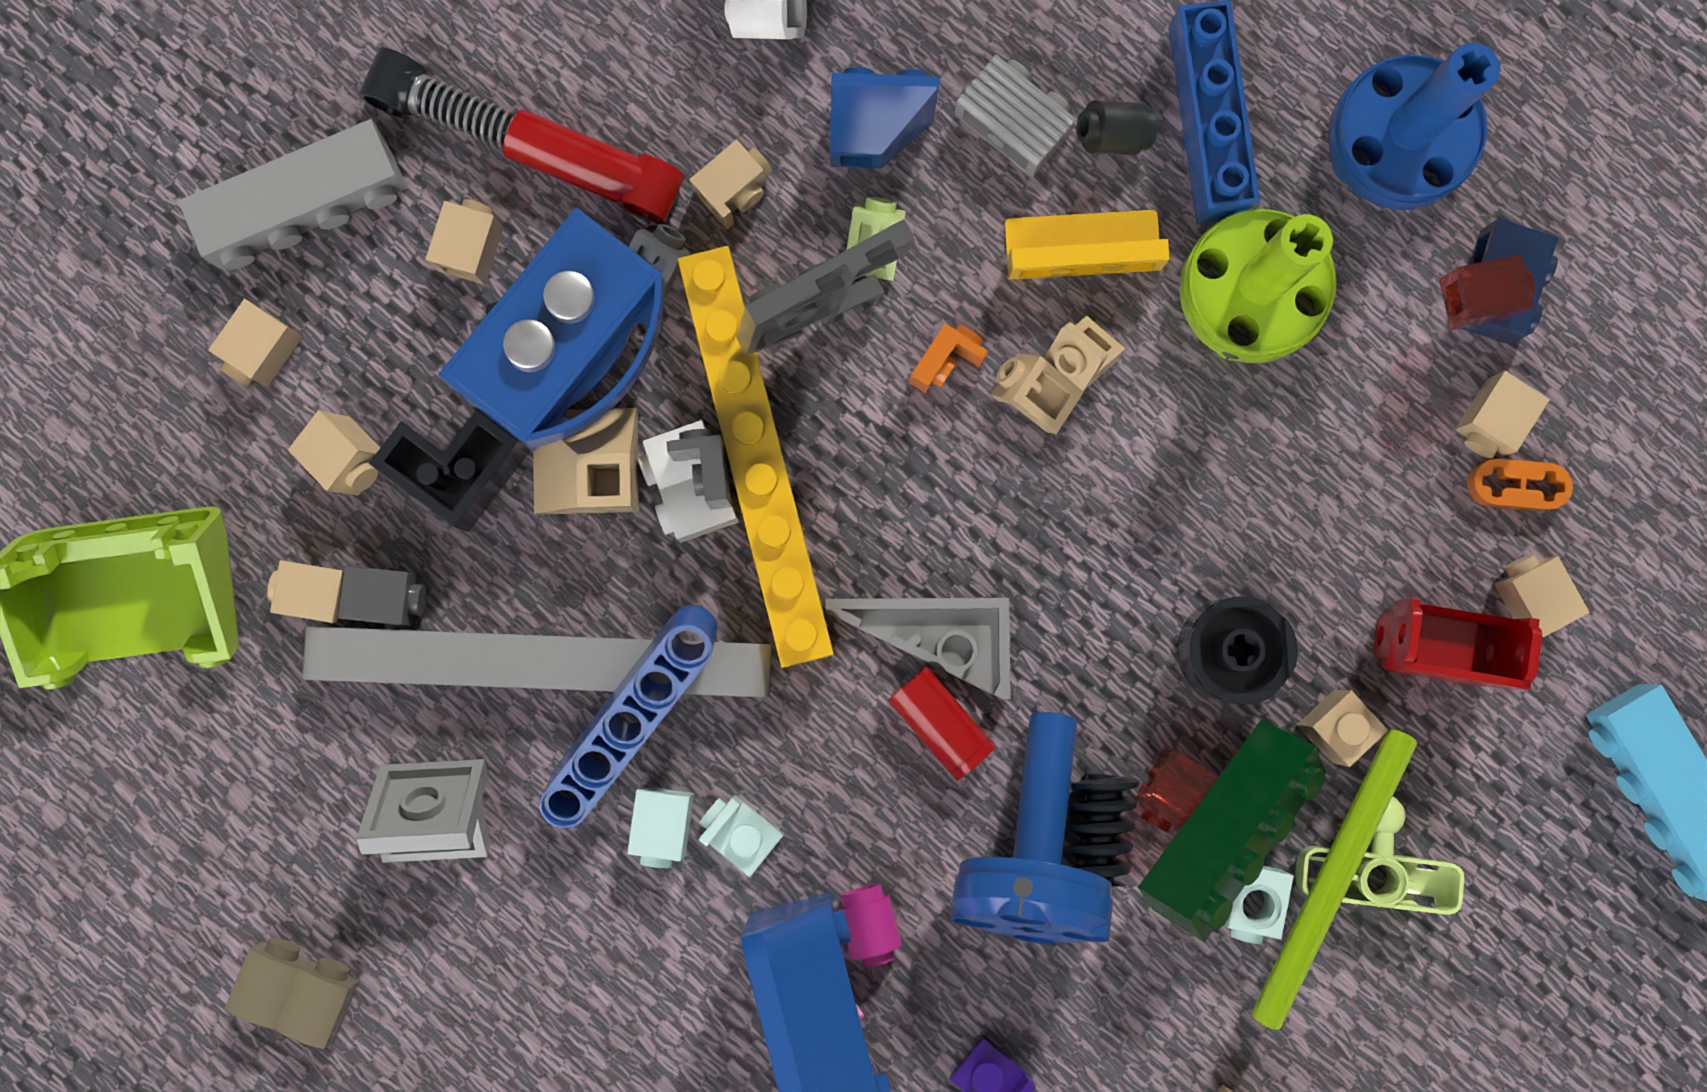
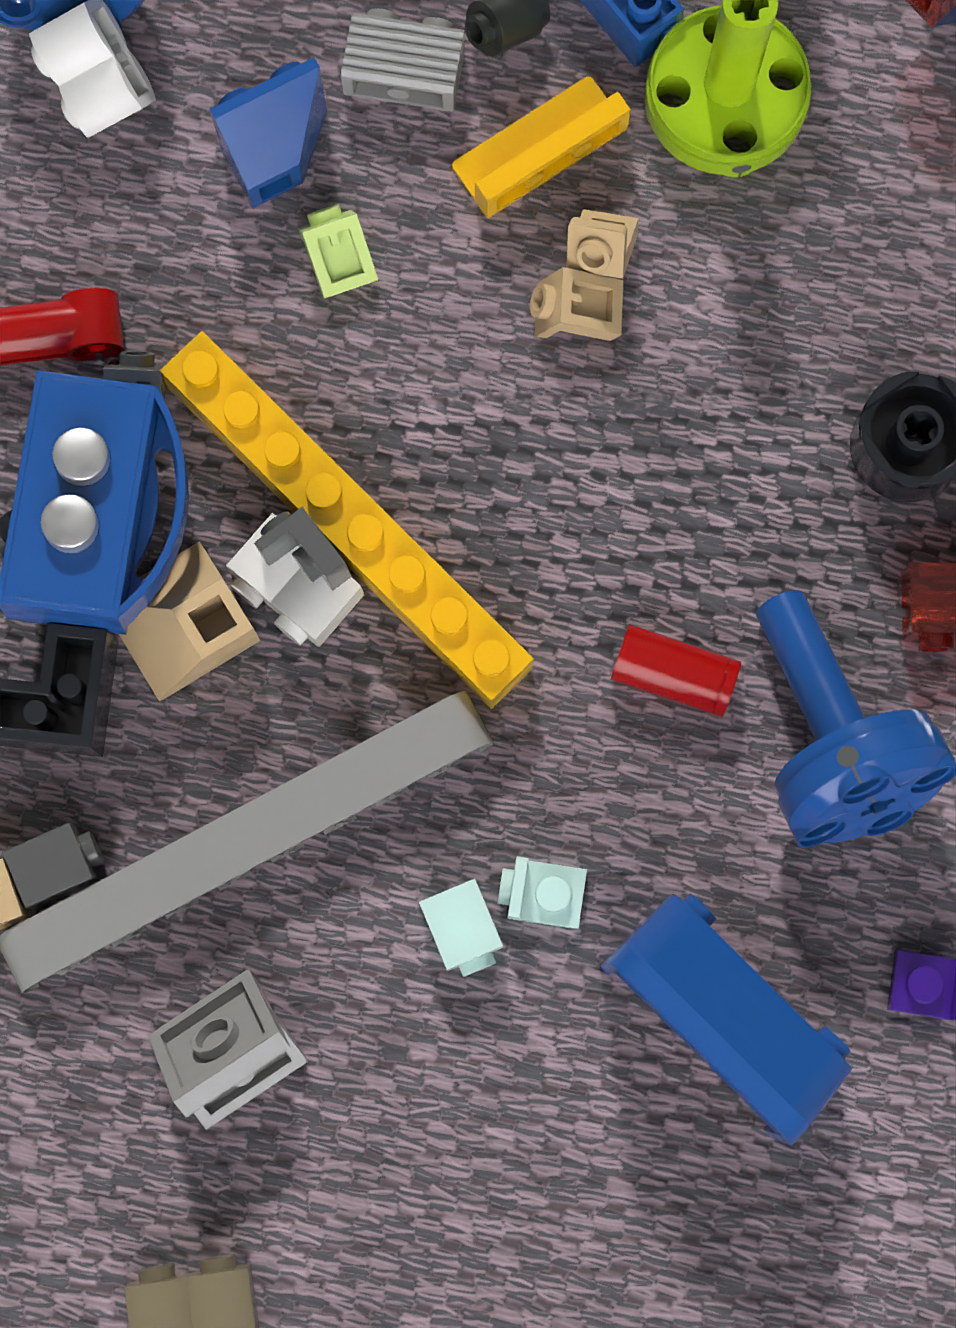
camera: 30 degrees left, 5 degrees down
(621, 739) = (375, 862): blue beam -> none
(731, 182) = (167, 274): tan brick -> none
(821, 291) = (322, 315): dark grey wing -> none
(871, 925) = (728, 901): dark pink brick -> none
(937, 364) = (468, 333): orange bracket -> none
(952, 634) = (634, 581): light grey wing -> none
(1102, 825) = (883, 670): black piece -> none

